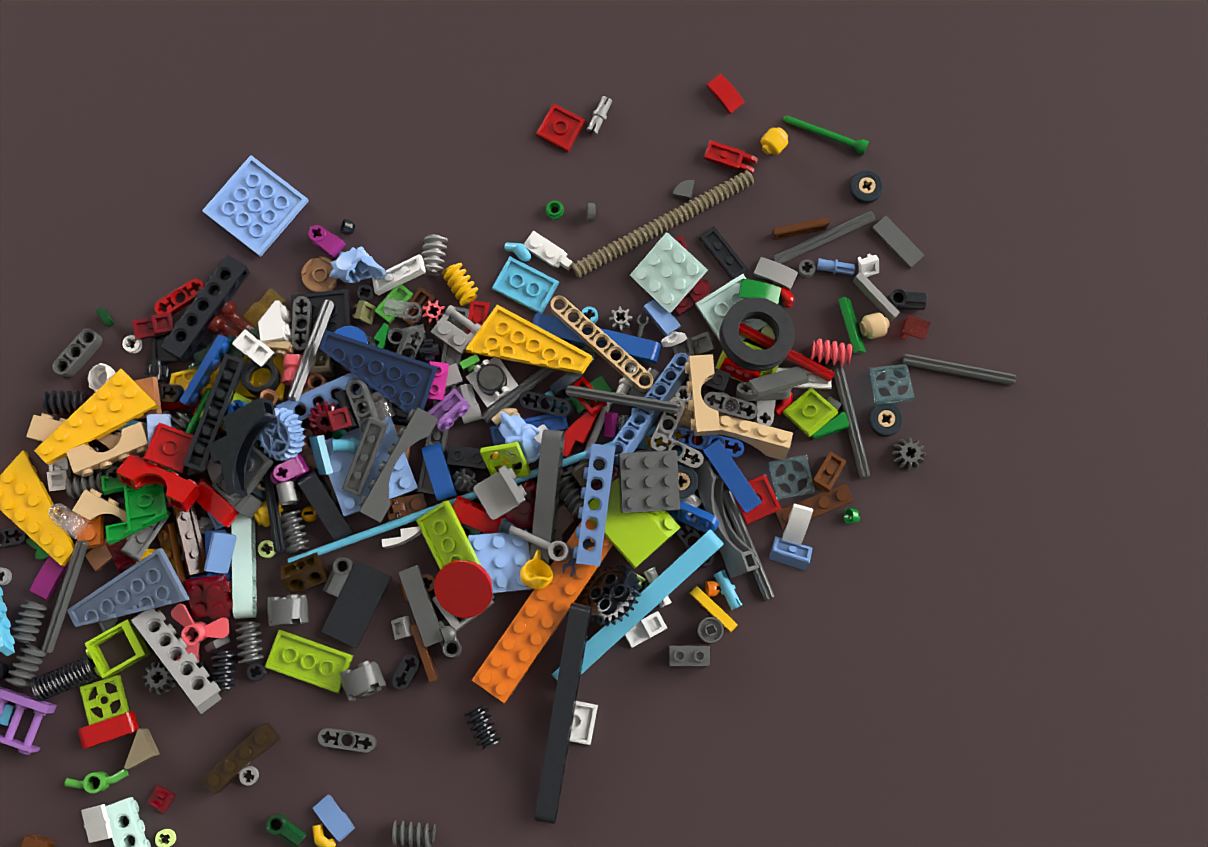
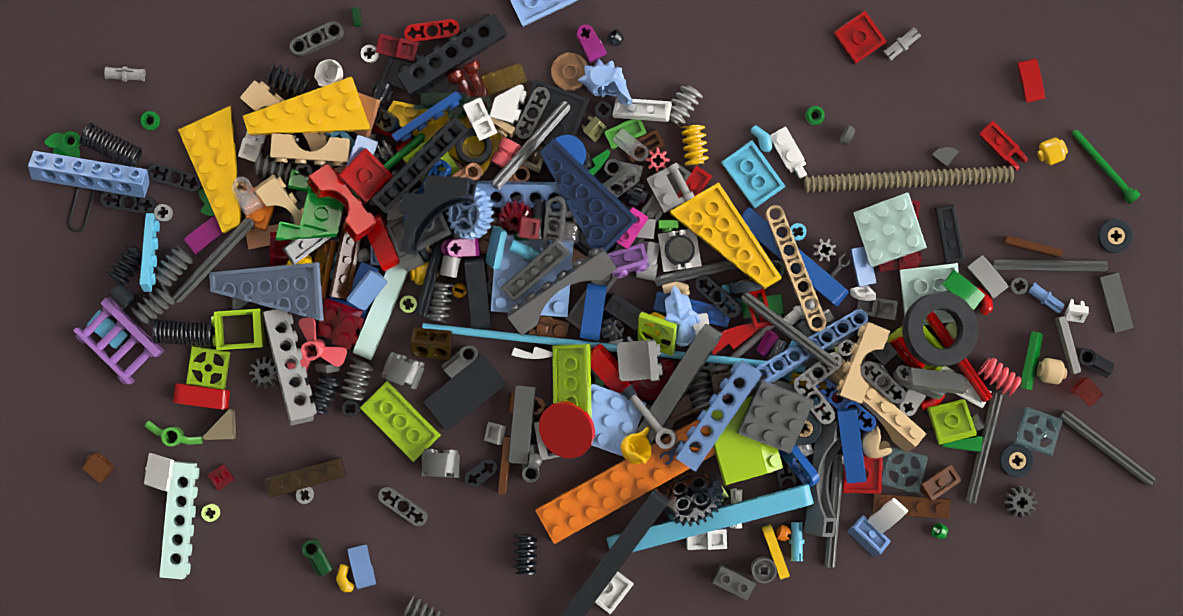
camera: 30 degrees right, 10 degrees up
(748, 466) = (872, 446): none -> tan helmet

